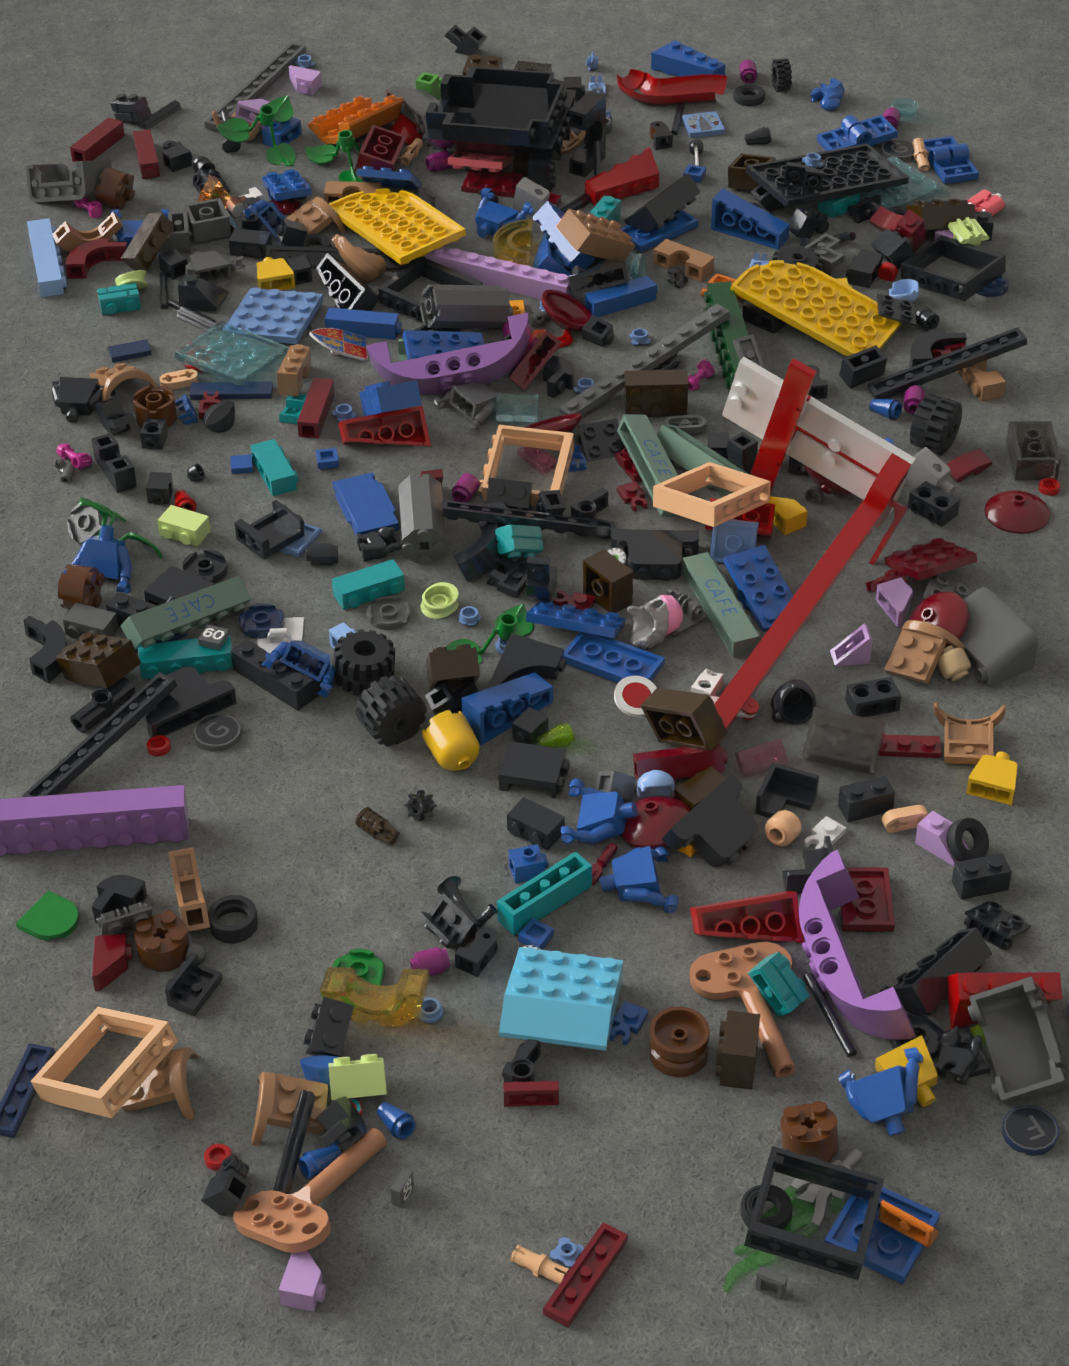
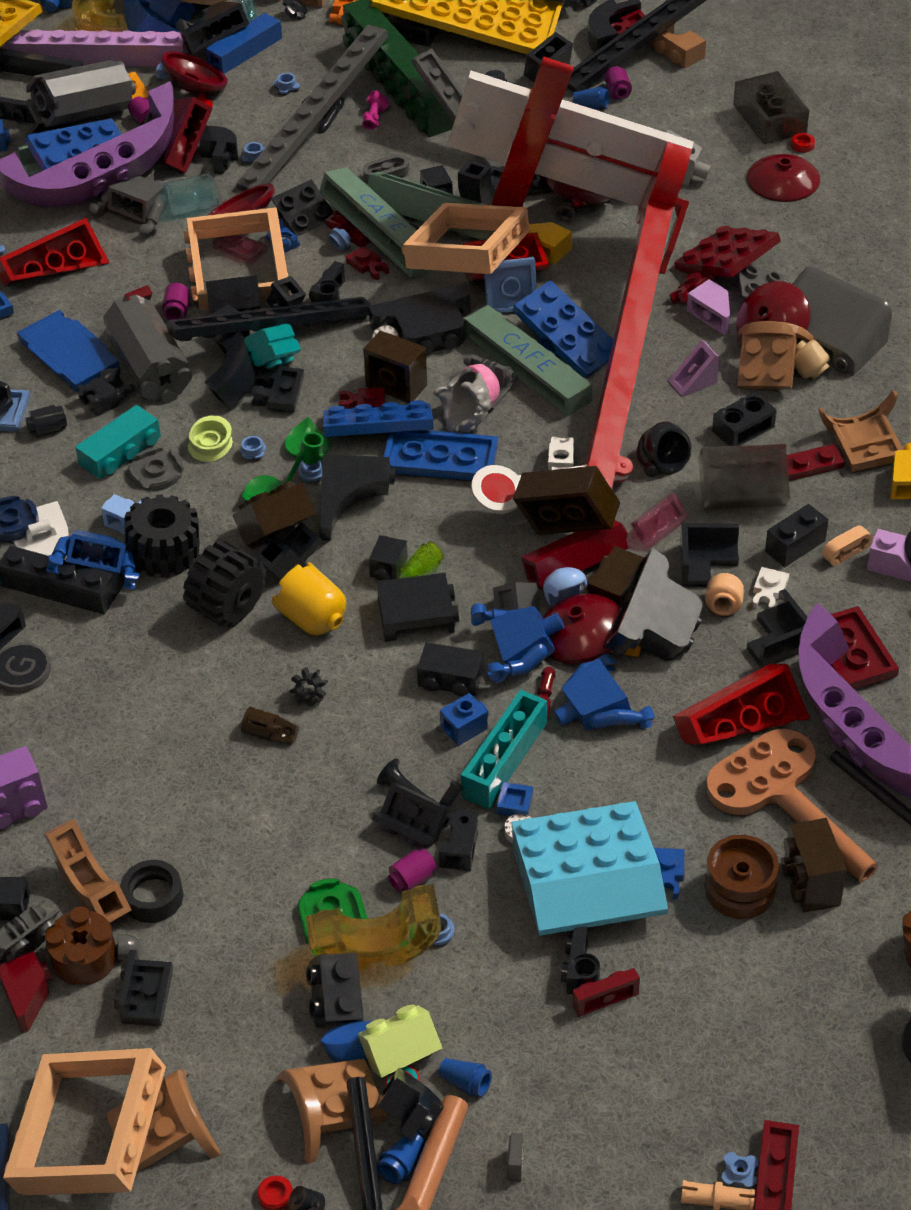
camera: 20 degrees left, 5 degrees up
(386, 397) = (44, 217): blue wedge -> none
(496, 708) = (350, 539): blue wedge -> none
(540, 579) = (321, 383): black arch -> none
(598, 331) = (239, 87): black brick -> none
(619, 471) = (339, 239): none -> medium blue plate
(656, 393) = (341, 140): dark brown brick -> none
(779, 983) = (816, 774): teal brick -> none
(933, 503) = (702, 191): black brick -> none
(936, 423) = (661, 100): black wheel -> none
(968, 463) = (711, 137): dark red slope -> none

